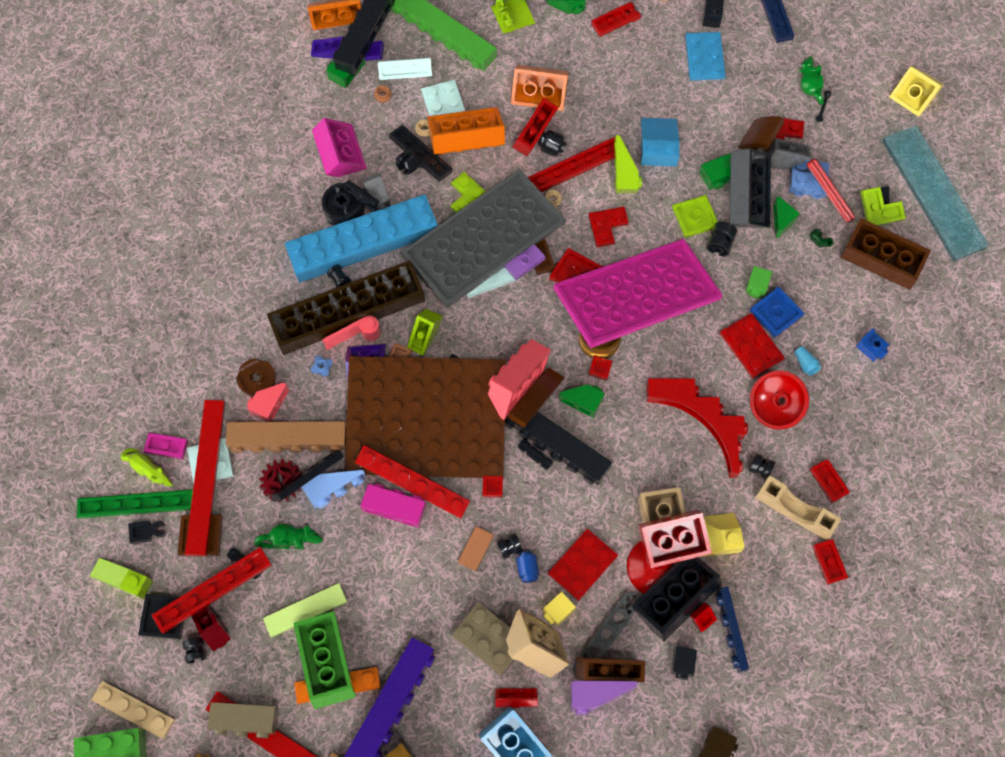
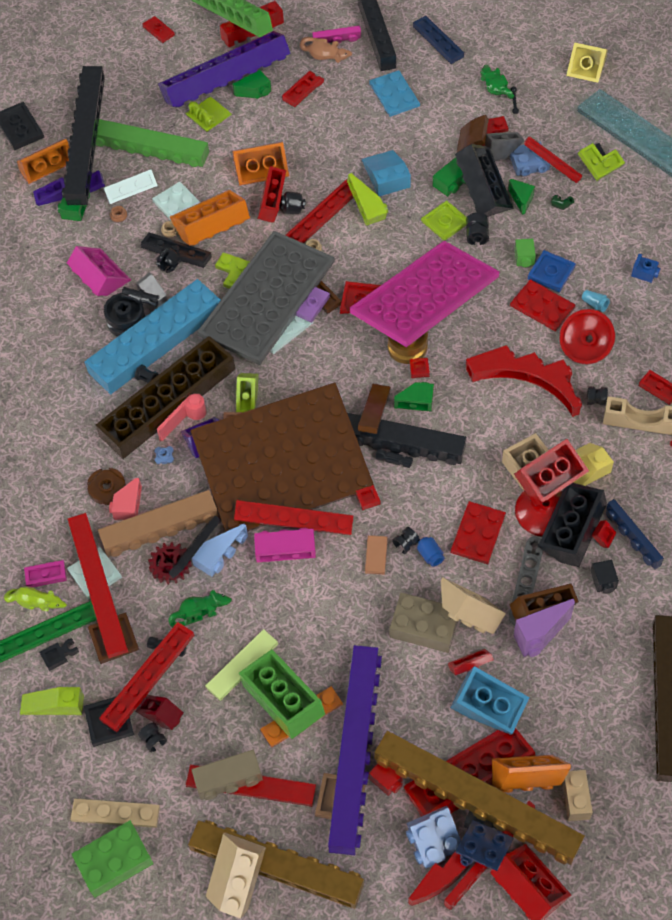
camera: 20 degrees left, 10 degrees down
(517, 376) = (352, 393): coral slope -> none
(558, 609) = (474, 575): light yellow brick -> none
(603, 221) = (367, 252): red plate -> none
(886, 254) = (622, 193): reddish brown brick -> none

